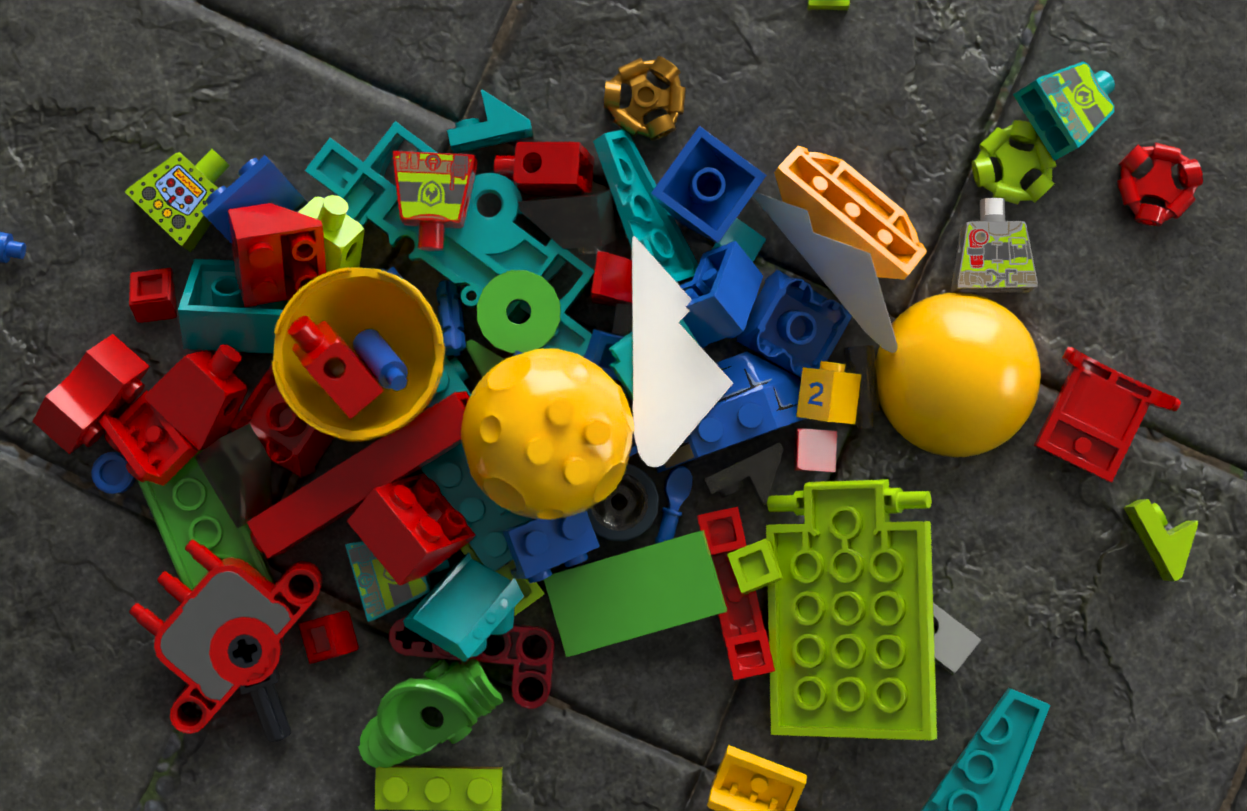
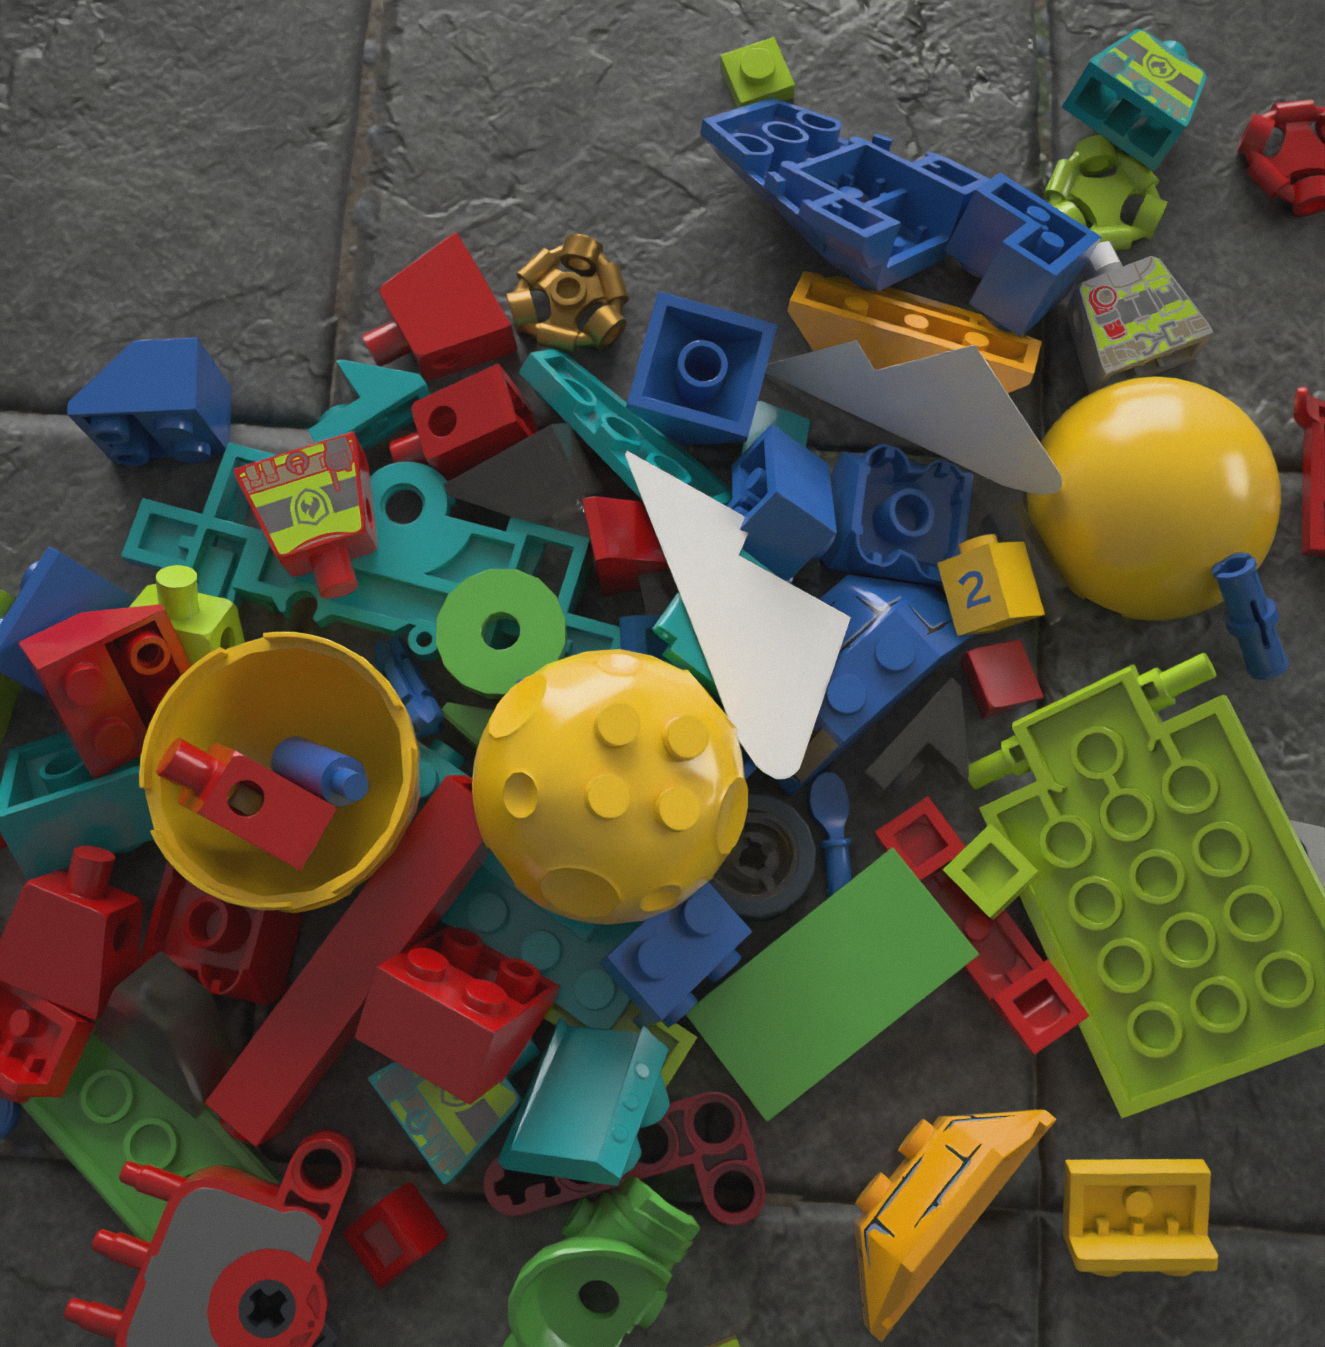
camera: 15 degrees left, 10 degrees down
(360, 75) = (157, 403): none -> blue slope
(558, 79) = (441, 315): none -> red torso
(644, 737) = (933, 1202): none -> light orange wedge
(847, 99) = (842, 195): none -> blue wedge
(944, 186) = (1021, 252): none -> blue brick
(977, 456) = (1250, 616): none -> blue pin

